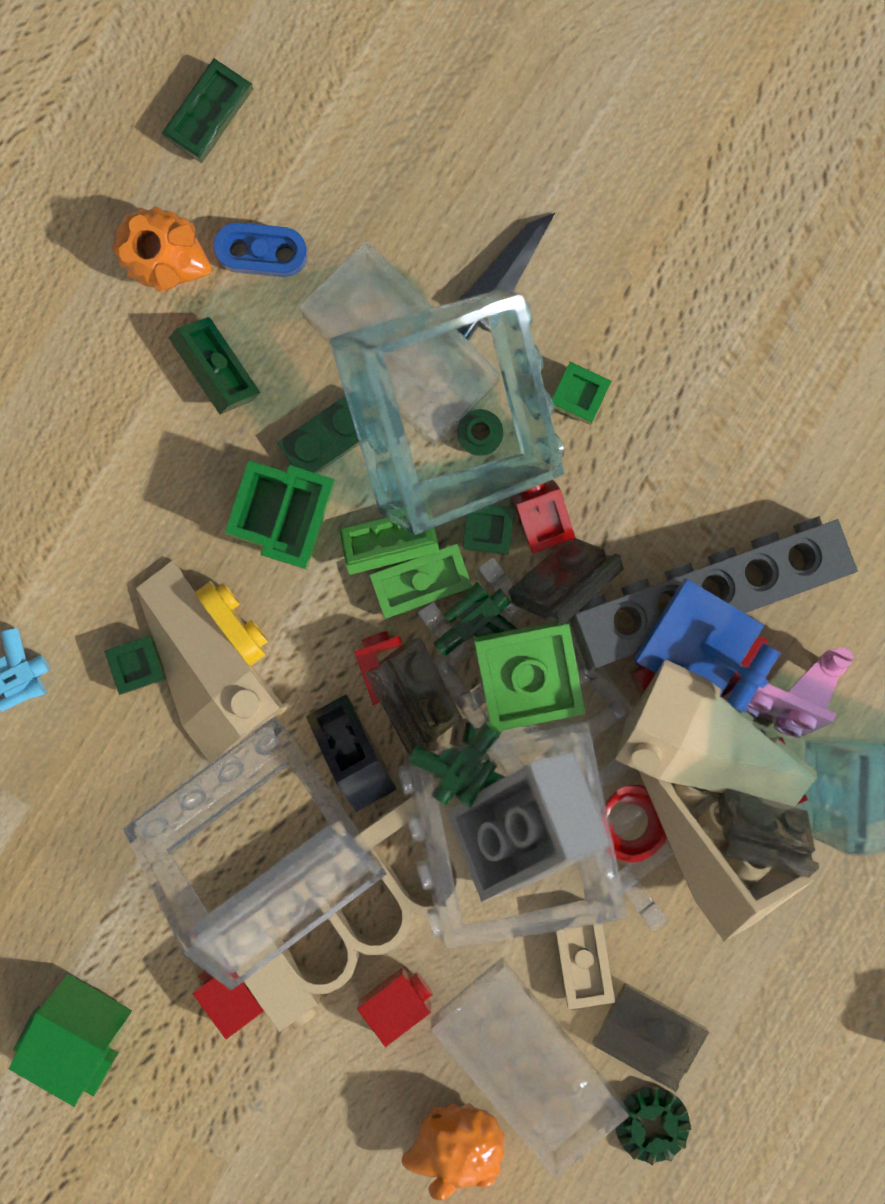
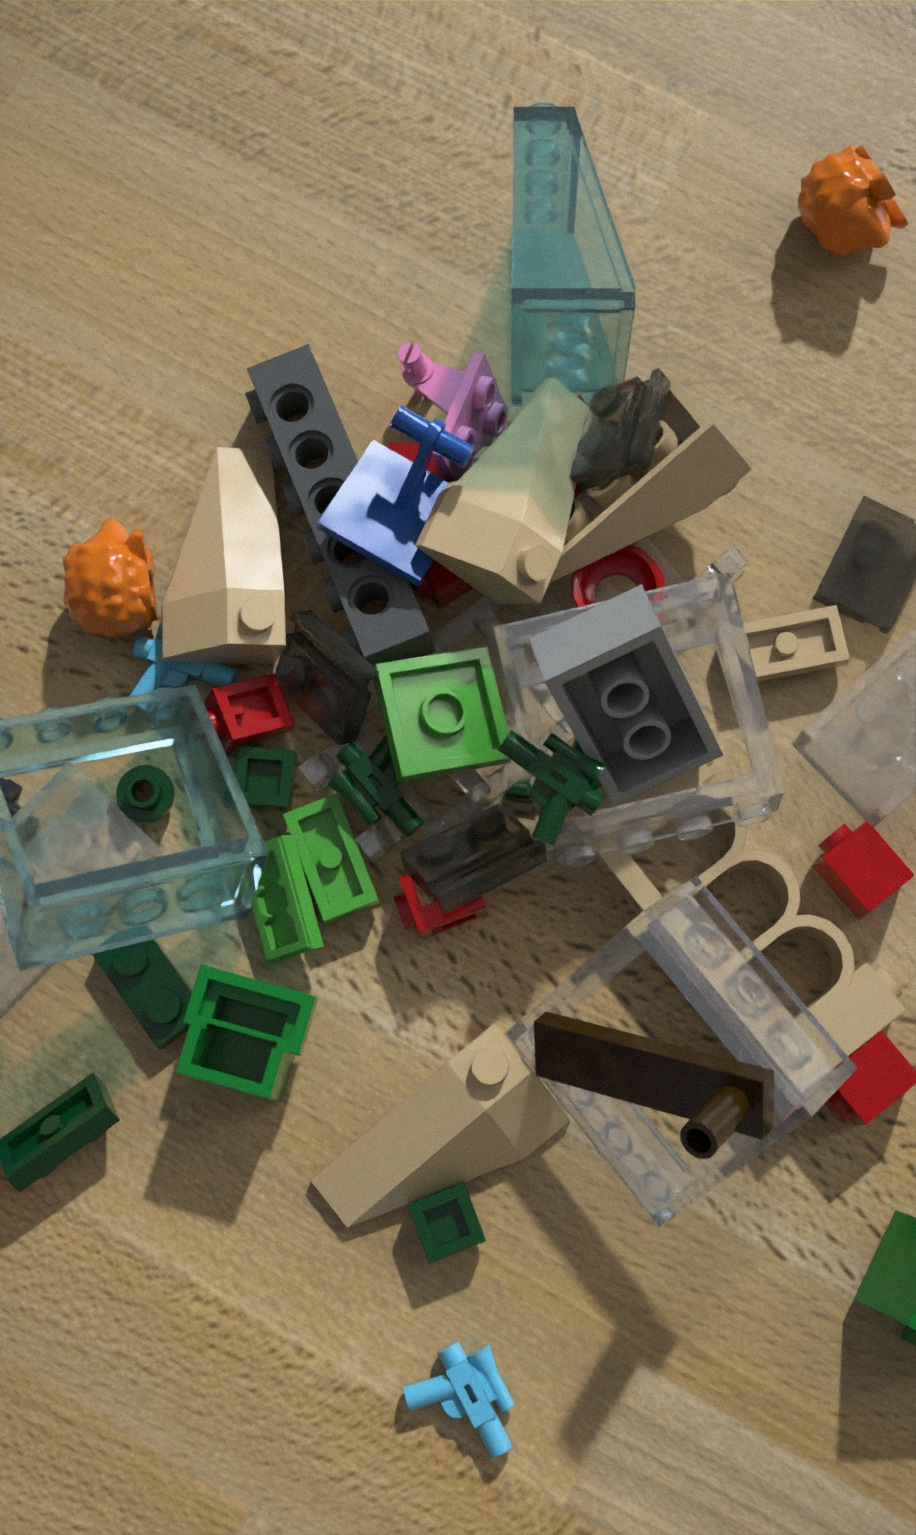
camera: 85 degrees left, 10 degrees down
(209, 878) = (699, 1086): none -> dark brown piece
(244, 637) = (366, 1109): yellow plate -> none
(350, 753) = (548, 935): black arch -> none
(580, 393) = (96, 672): green plate -> none
(591, 456) = (175, 673): none -> medium azure piece
(655, 404) = (111, 582): none -> orange animal
(662, 502) = (229, 573): none -> tan wedge

